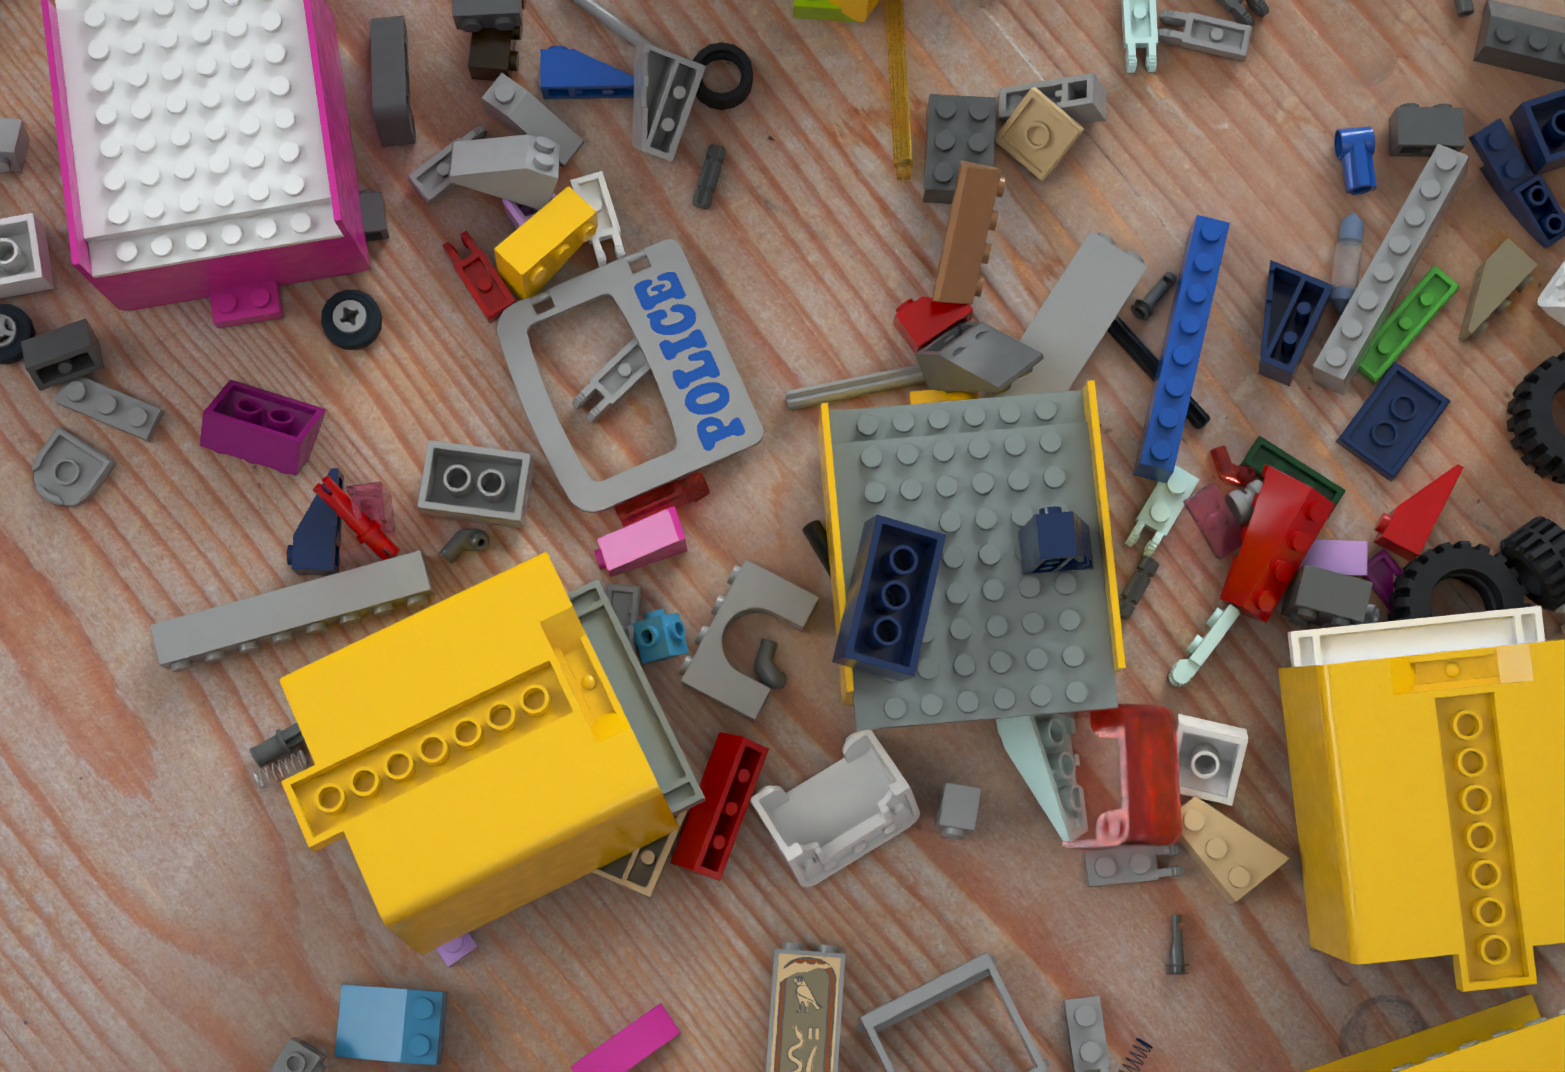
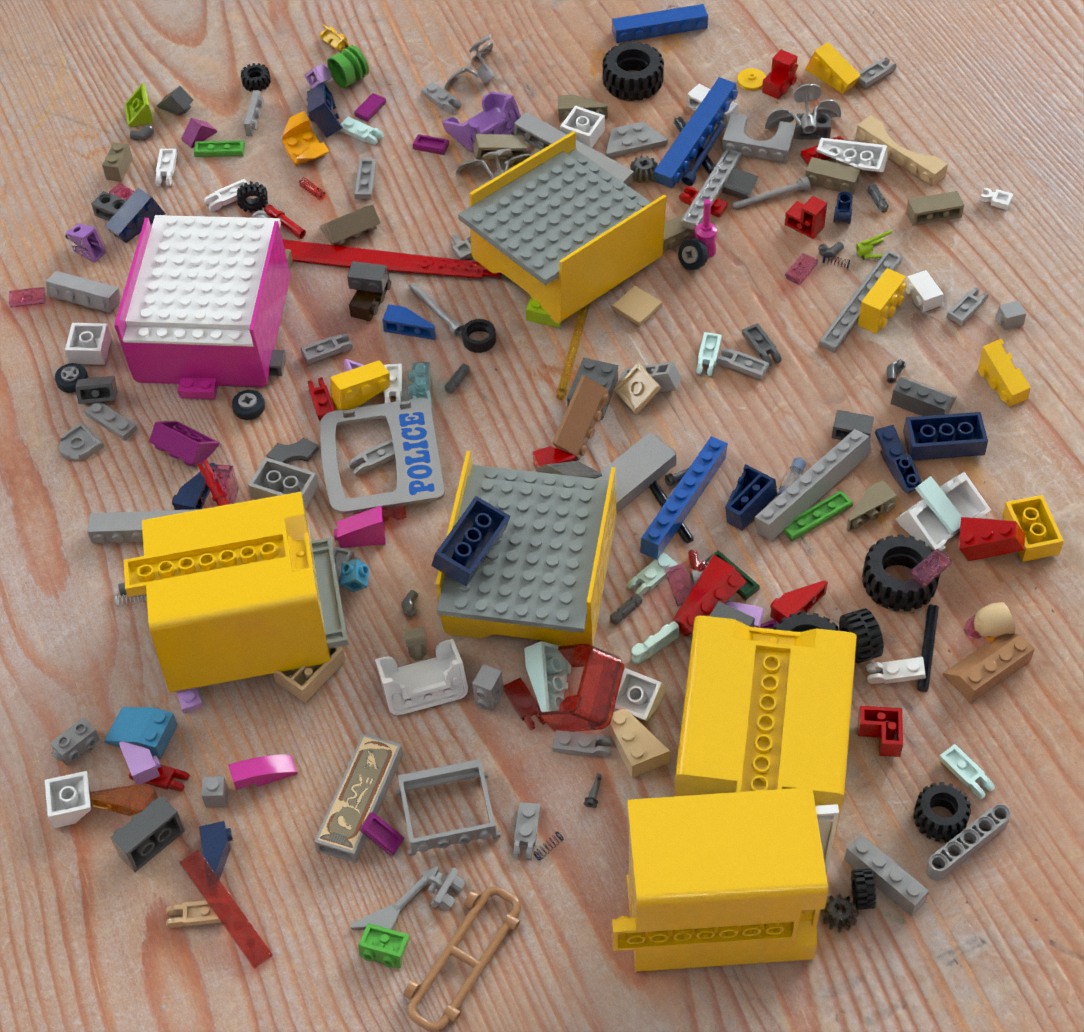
camera: 20 degrees right, 25 degrees down
(391, 81) = (306, 307): dark grey beam -> none
(450, 407) = (300, 450): none -> dark grey tile
(508, 167) = (354, 349): light grey slope -> none
(527, 115) = (372, 335): light grey slope -> none
(652, 208) = (421, 381): none -> clear light blue brick
(662, 98) = (443, 332): light grey wedge -> none
(716, 822) = (357, 660): red brick -> none
(751, 591) = (410, 566): light grey arch -> none
(810, 749) = (416, 642): none -> dark tan piece
(1016, 810) = (523, 702): none -> clear red hinge
(1055, 543) = (566, 529): dark blue wedge -> none
(1356, 150) = (810, 431): blue piece -> none
(1393, 421) = (797, 559): dark blue tile -> none

